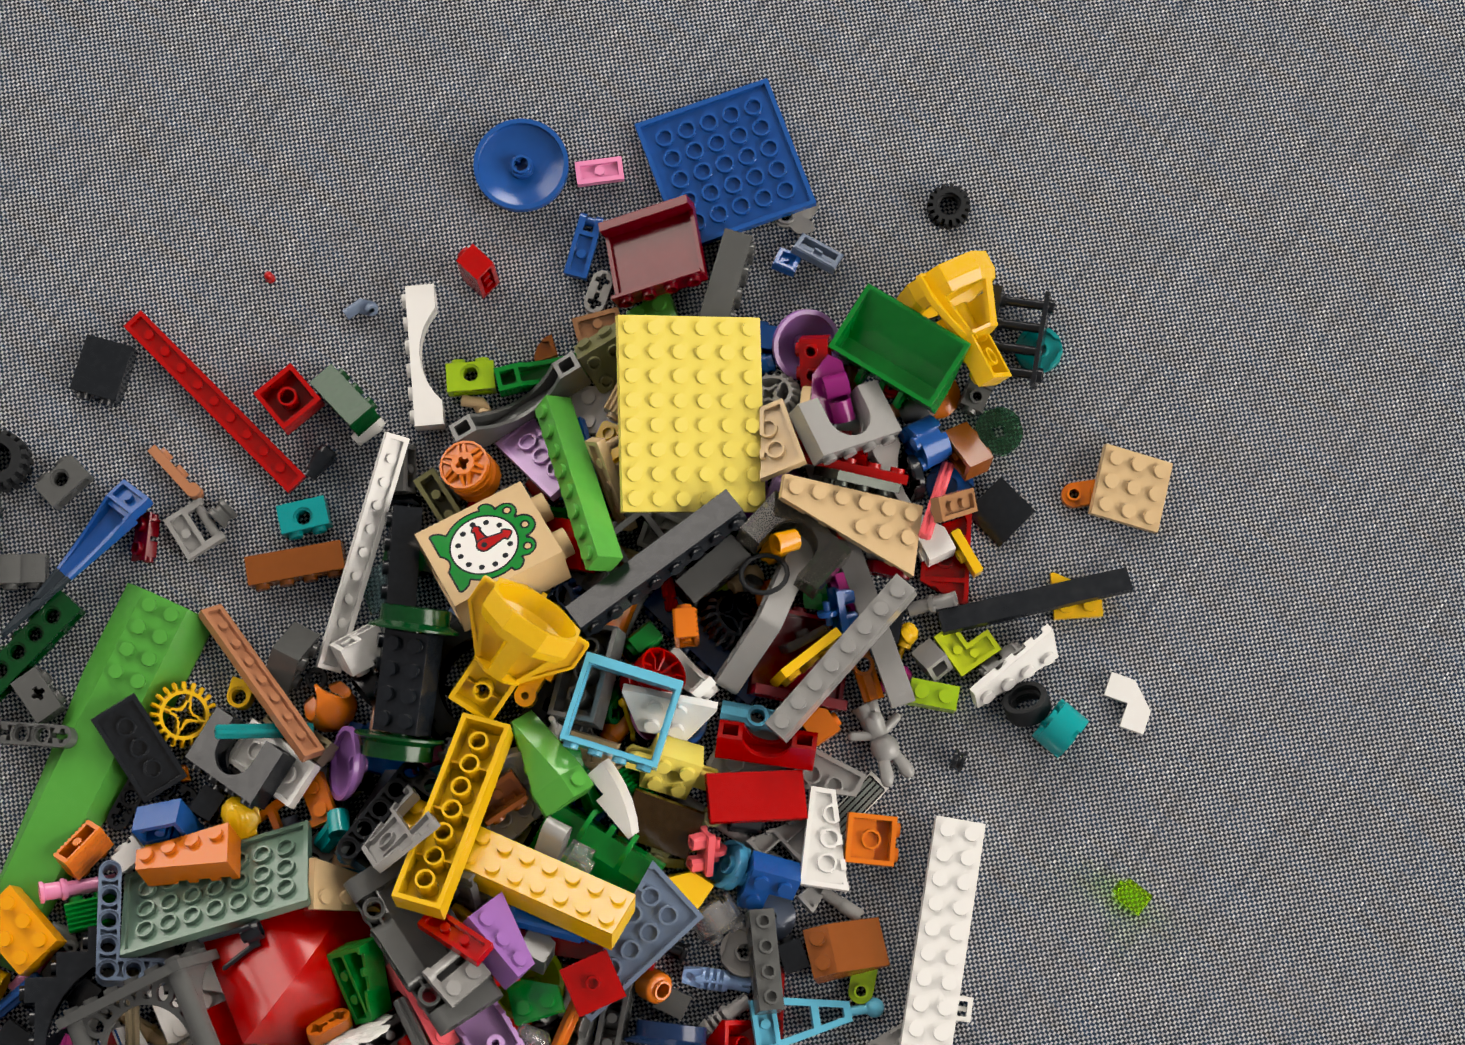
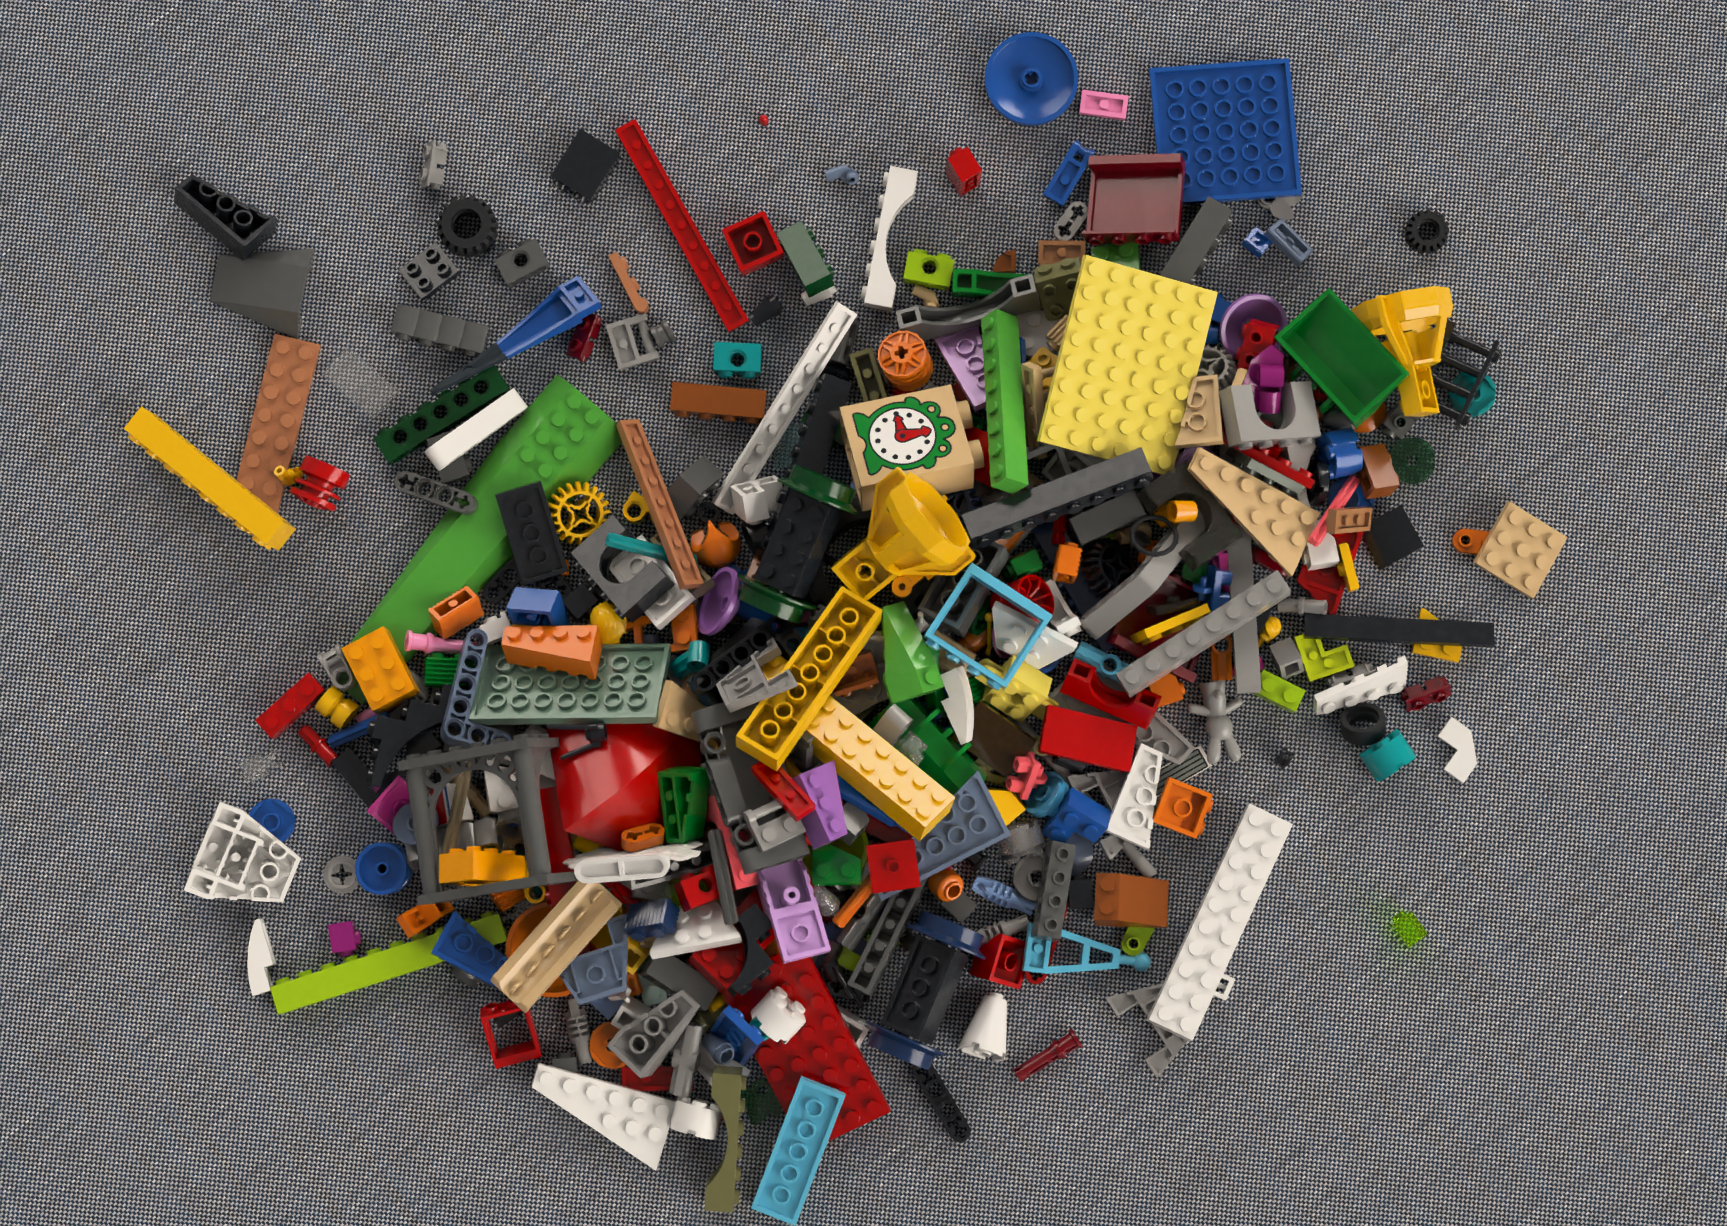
camera: 15 degrees right, 5 degrees up
(57, 660) = (476, 429): none -> white beam
(1089, 650) = (1436, 691): none -> dark red hinge

